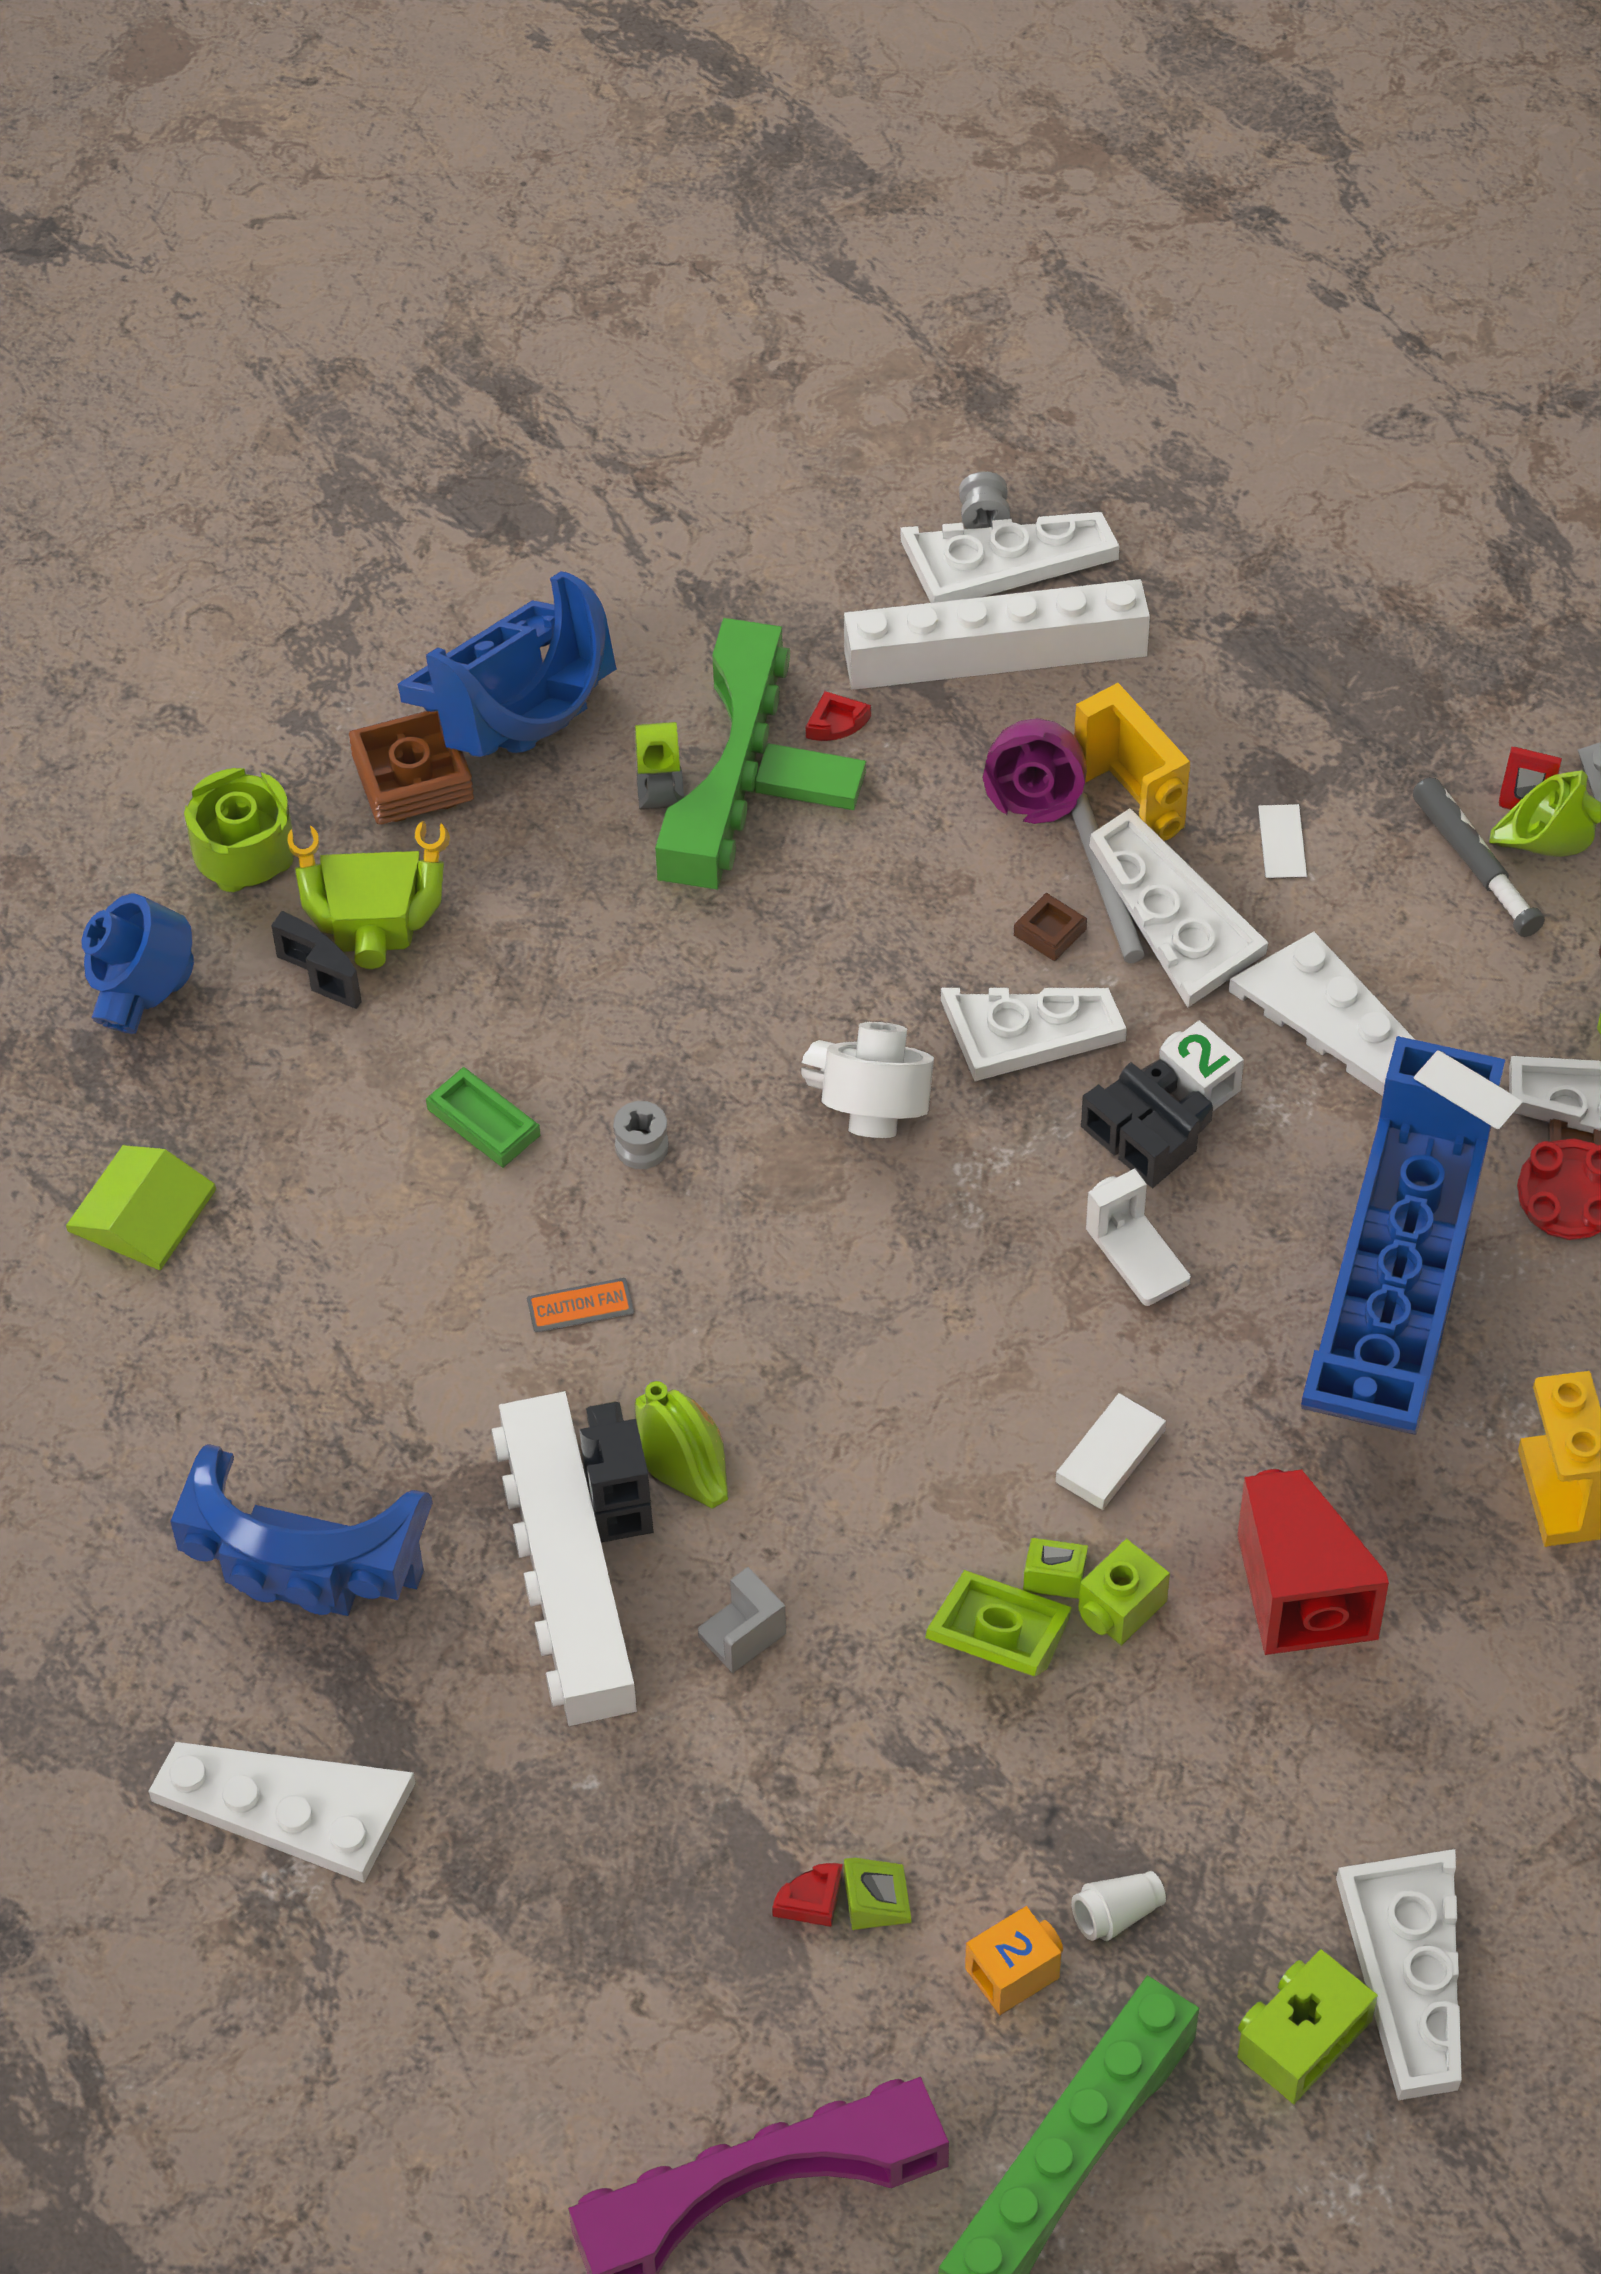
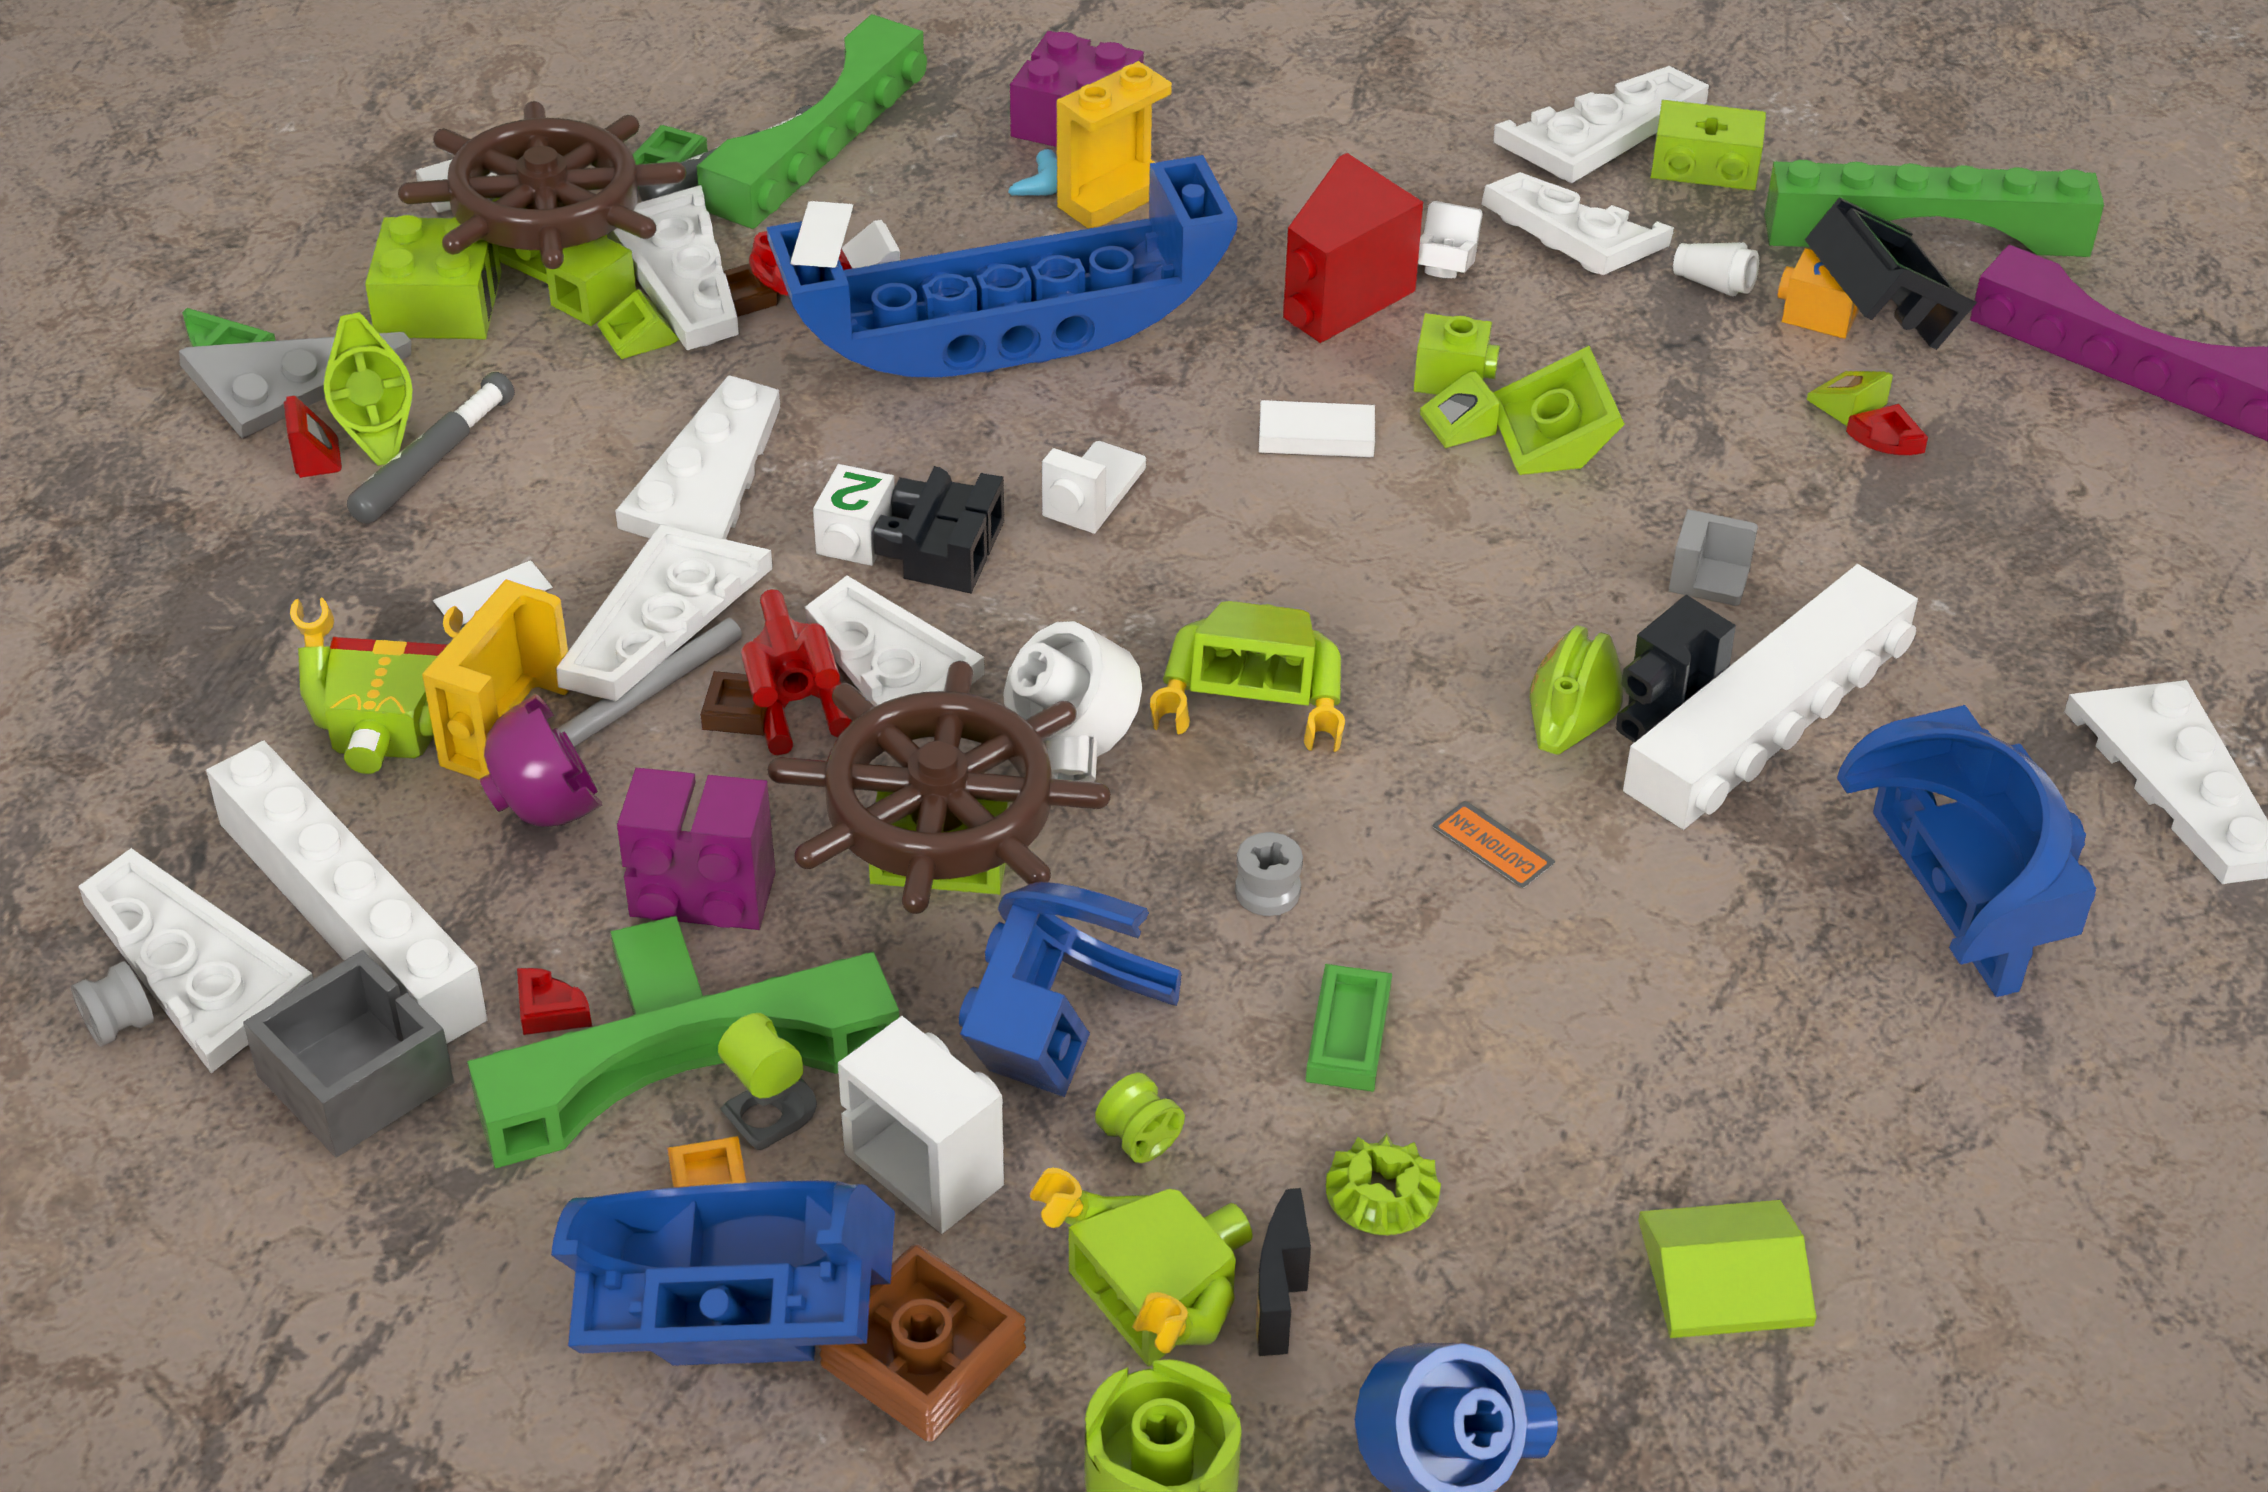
camera: 125 degrees left, 10 degrees down
(359, 1072) = (1372, 1206): none -> lime gear
(489, 951) = (1139, 1117): none -> lime wheel
(554, 817) = (922, 1123): none -> white piece
(596, 900) = (1015, 1017): none -> blue piece
(618, 736) = (707, 1163): none -> light orange tile
(819, 951) = (939, 813): none -> reddish brown brick
(836, 573) = (349, 1053): none -> flat silver piece
(841, 1231) = (1258, 656): none -> lime torso
(880, 805) = (701, 876): none -> magenta piece
(1049, 952) = (788, 665): none -> red plant
(1050, 1987) = (1882, 263): none -> black window
(1199, 708) = (368, 690): none -> lime torso
(1260, 1826) = (1592, 236): none -> white wing
(1287, 1687) = (1449, 239): none -> white bracket
(1540, 1236) = (872, 246): none -> white slope
(1563, 1041) = (636, 327): none -> lime slope

